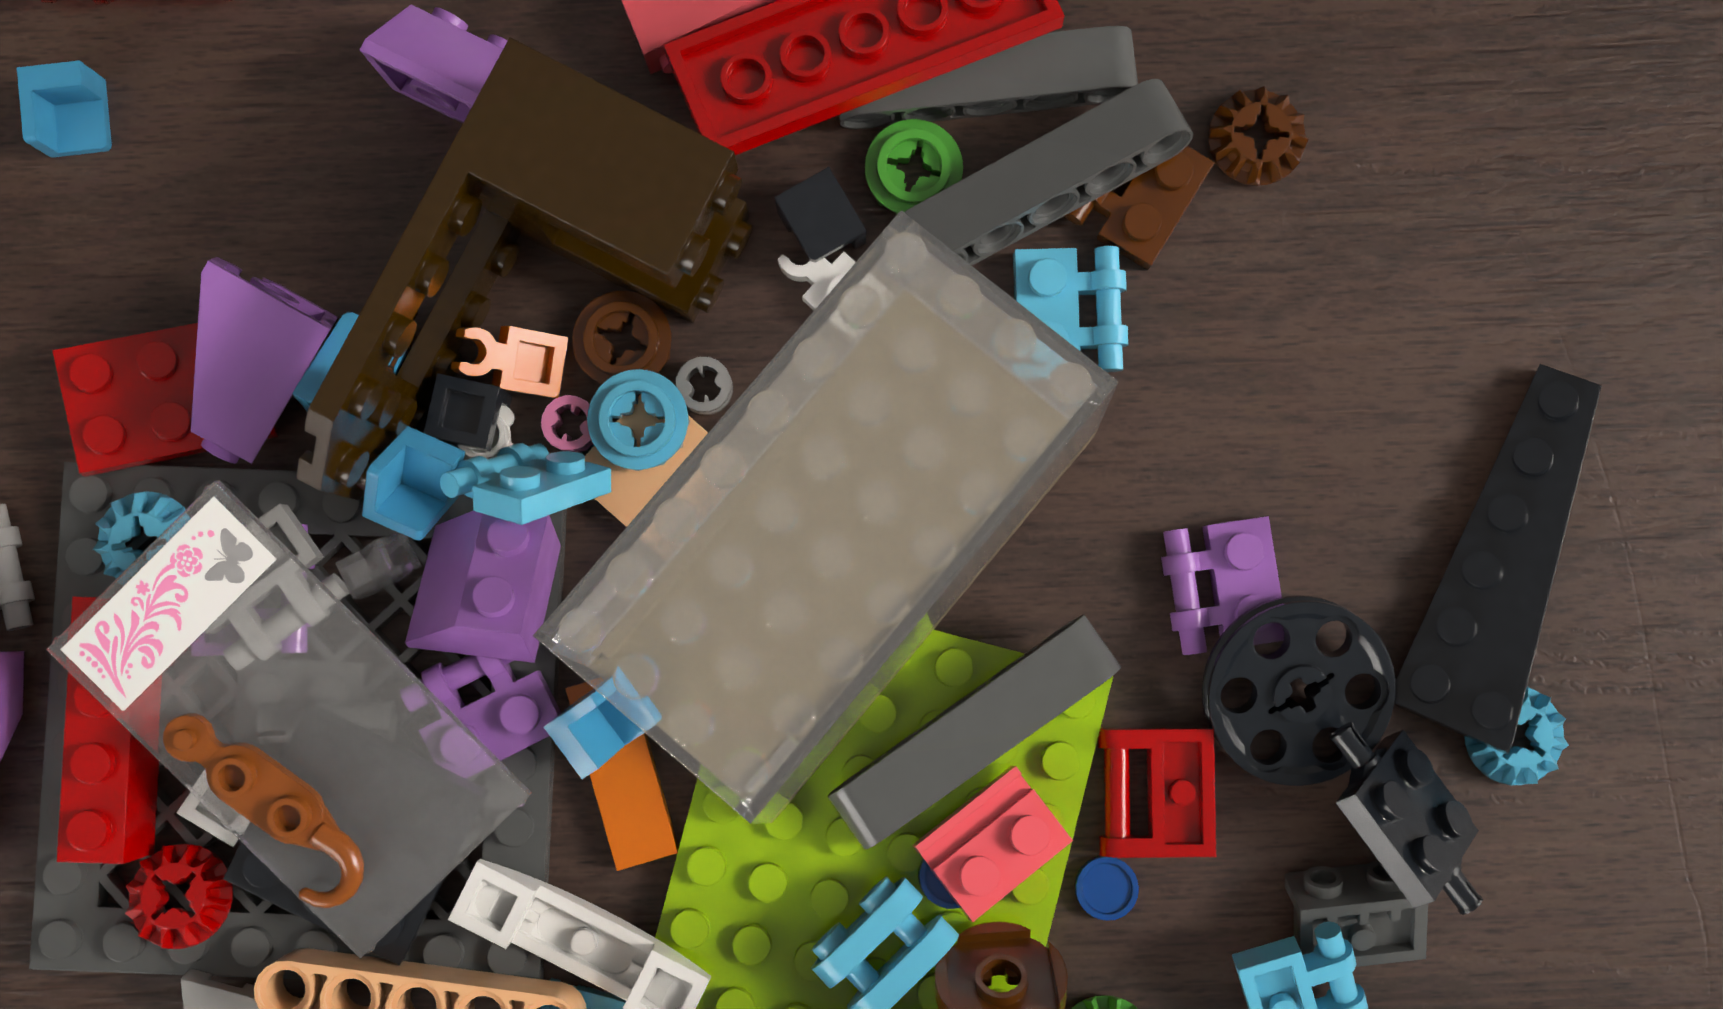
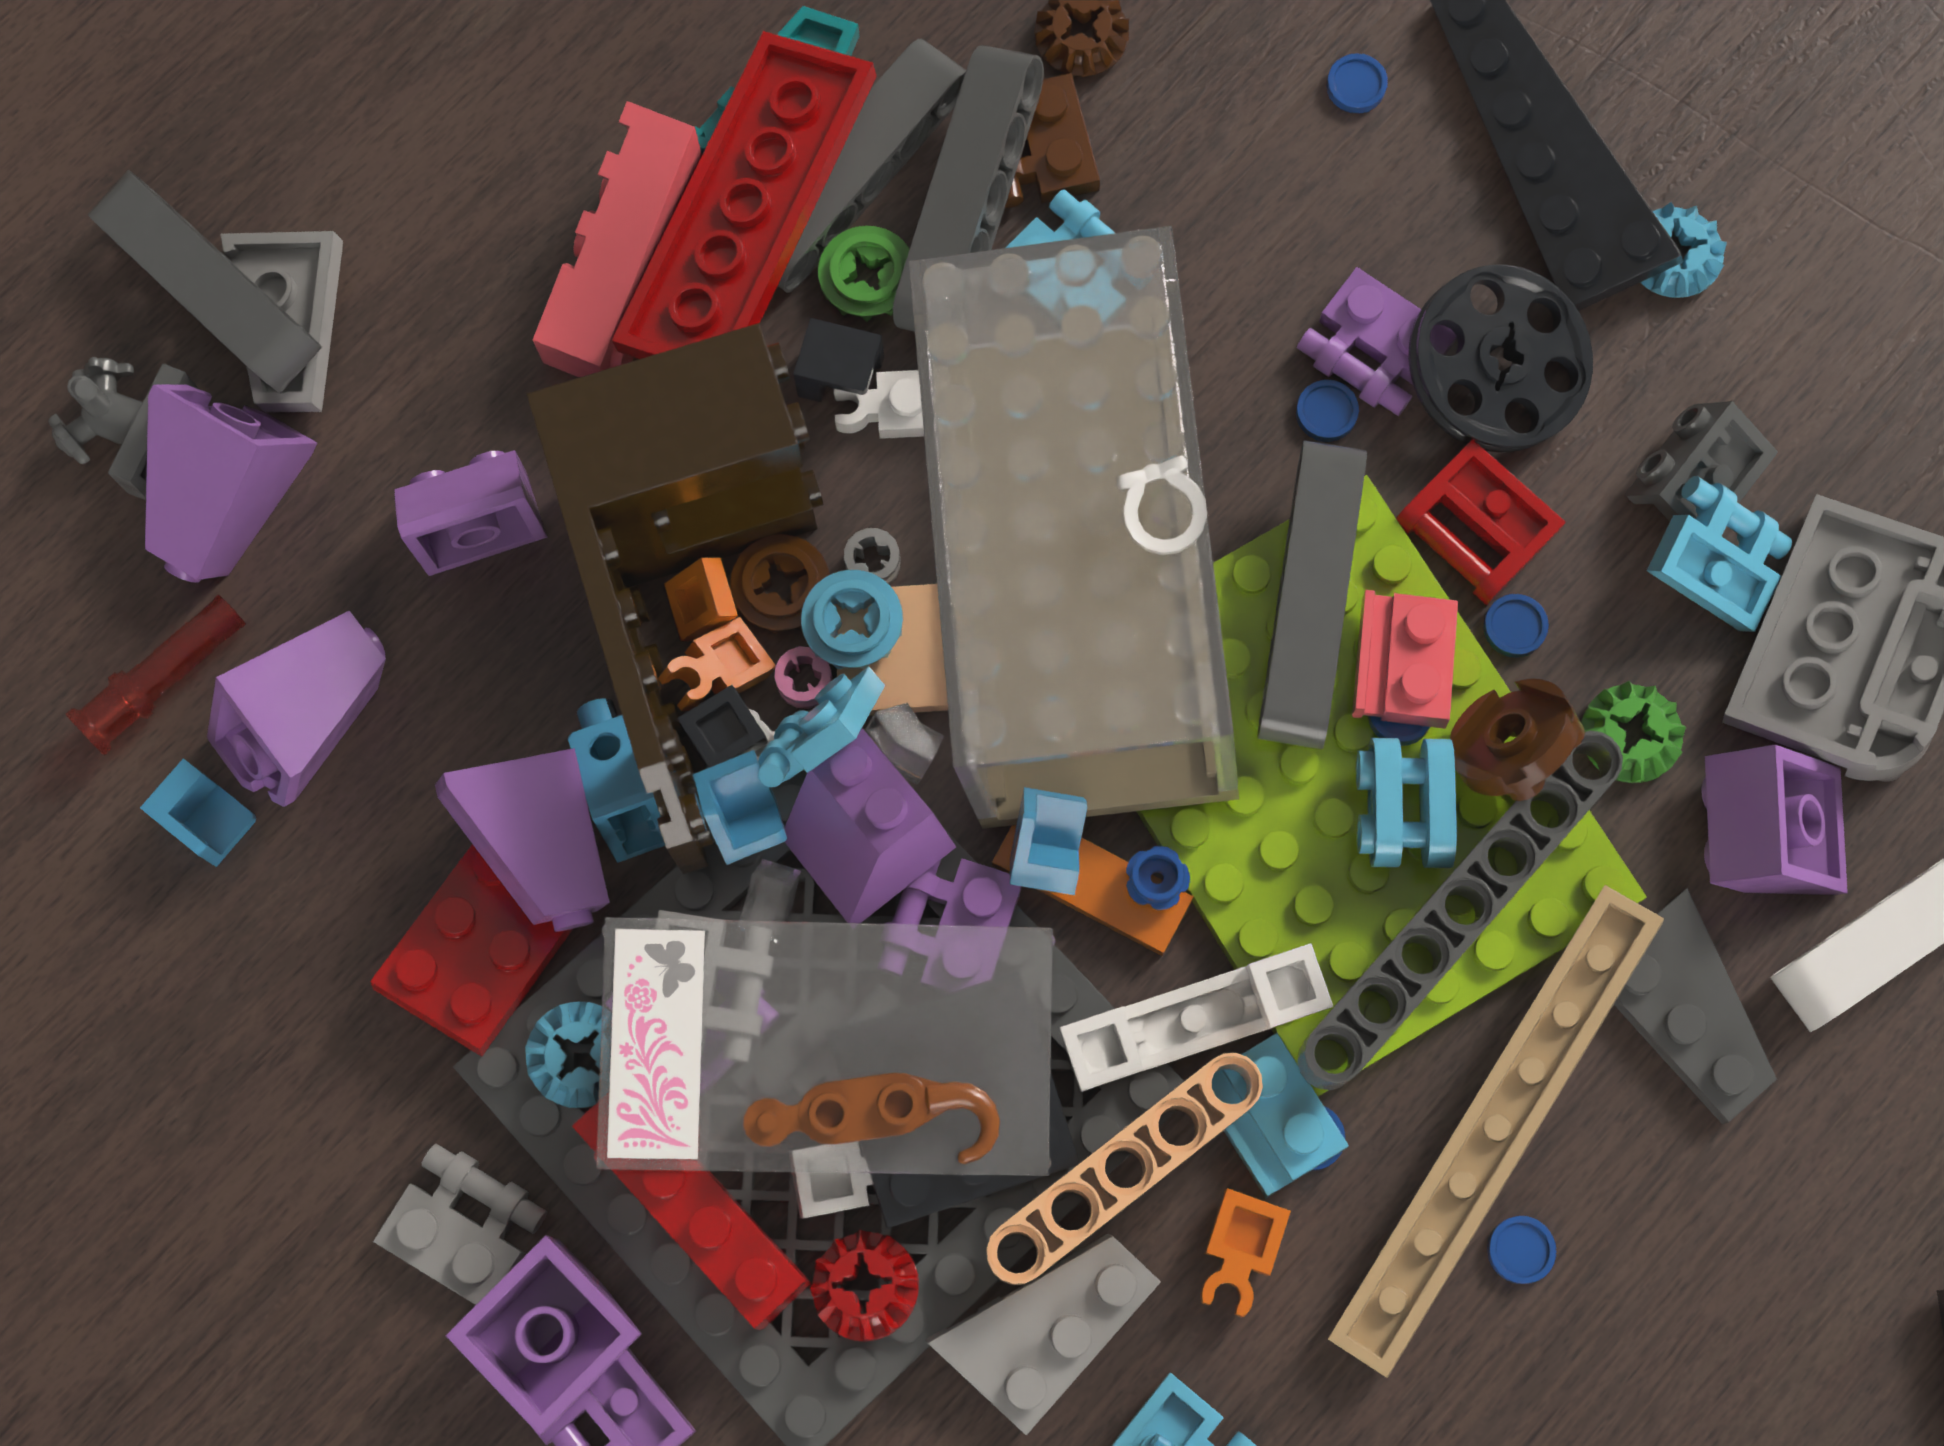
camera: 35 degrees left, 10 degrees down
(200, 99) = (293, 705): none -> medium lavender slope
(553, 297) = (700, 598): none -> orange plate
(585, 538) = (904, 740): none -> clear piece
(658, 835) = (1160, 860): none -> blue plate
(906, 584) = (1173, 473): none -> white piece
(1138, 598) = (1327, 410): none -> blue piece
(1407, 818) = (1663, 364): black plate -> none
(1418, 375) = (1357, 83): none -> blue piece

